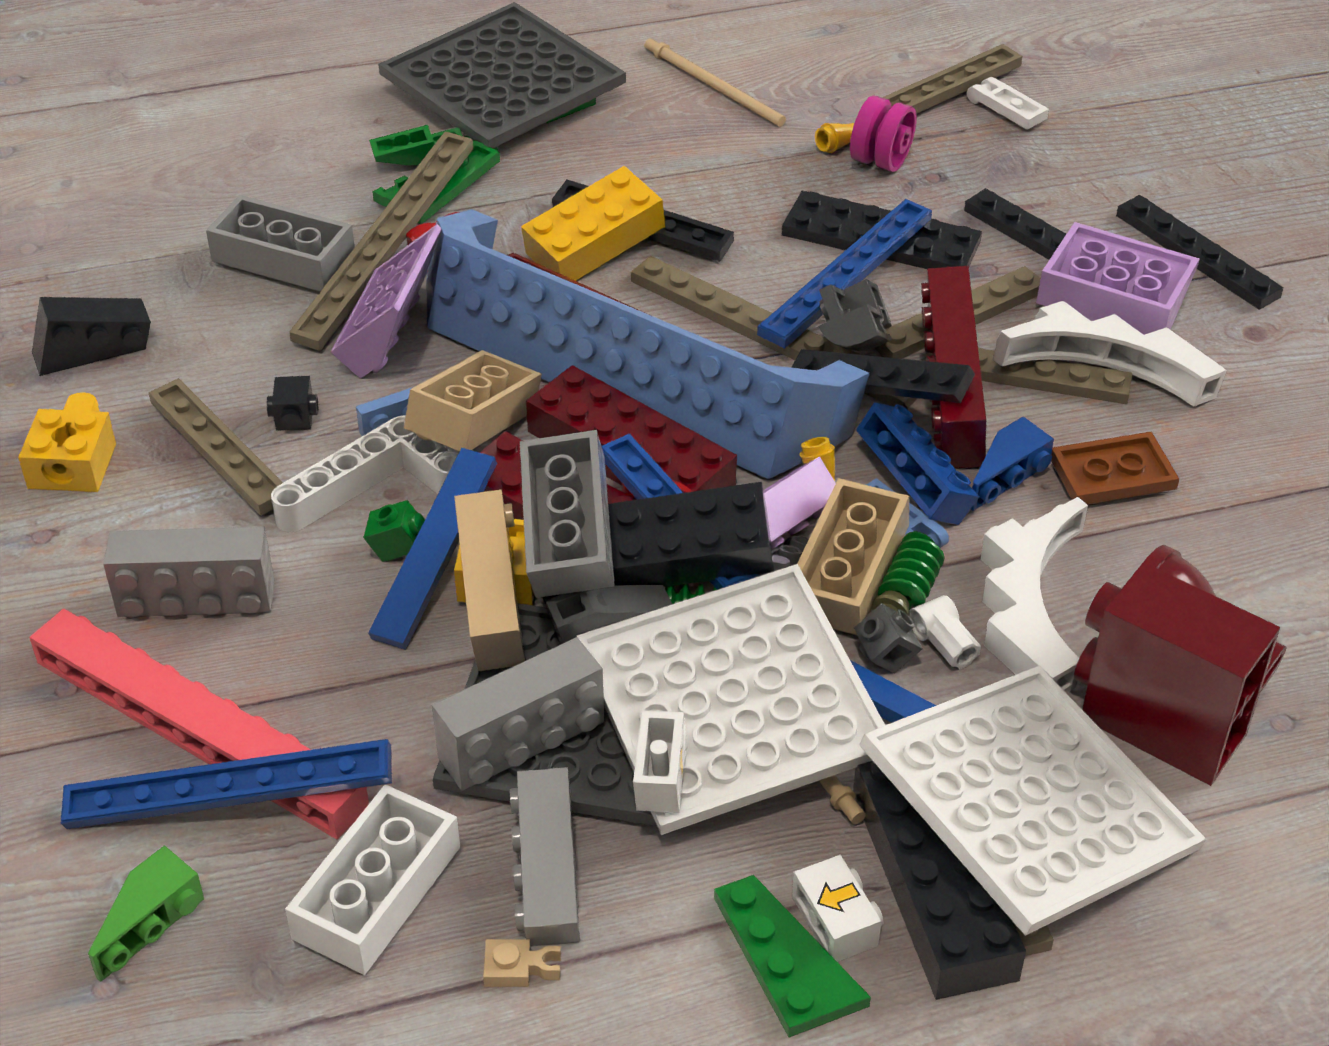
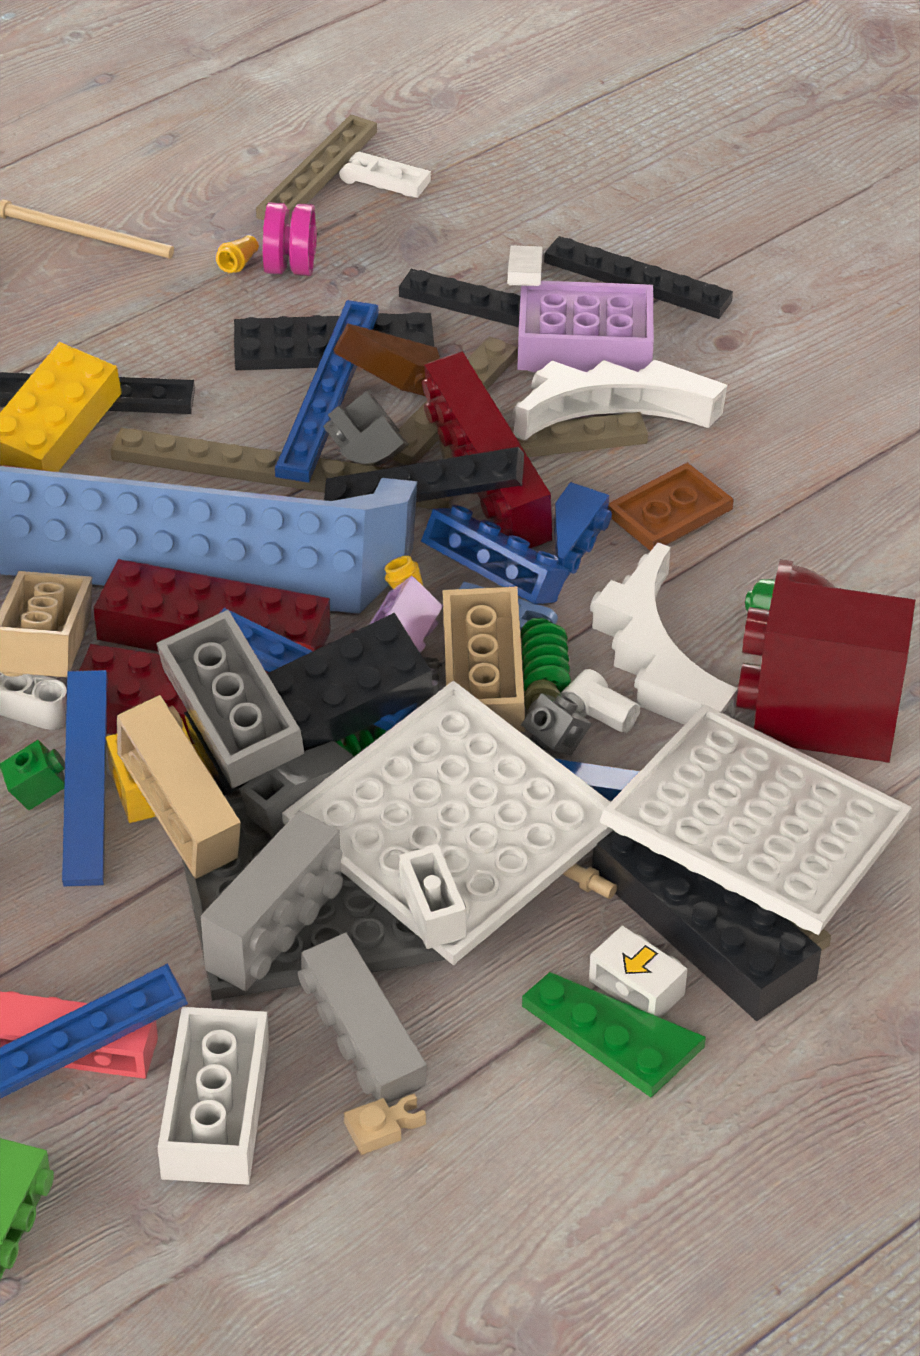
camera: 25 degrees left, 0 degrees up
(908, 252) = (387, 356): none -> reddish brown slope
(1086, 210) = (525, 265): none -> white tile

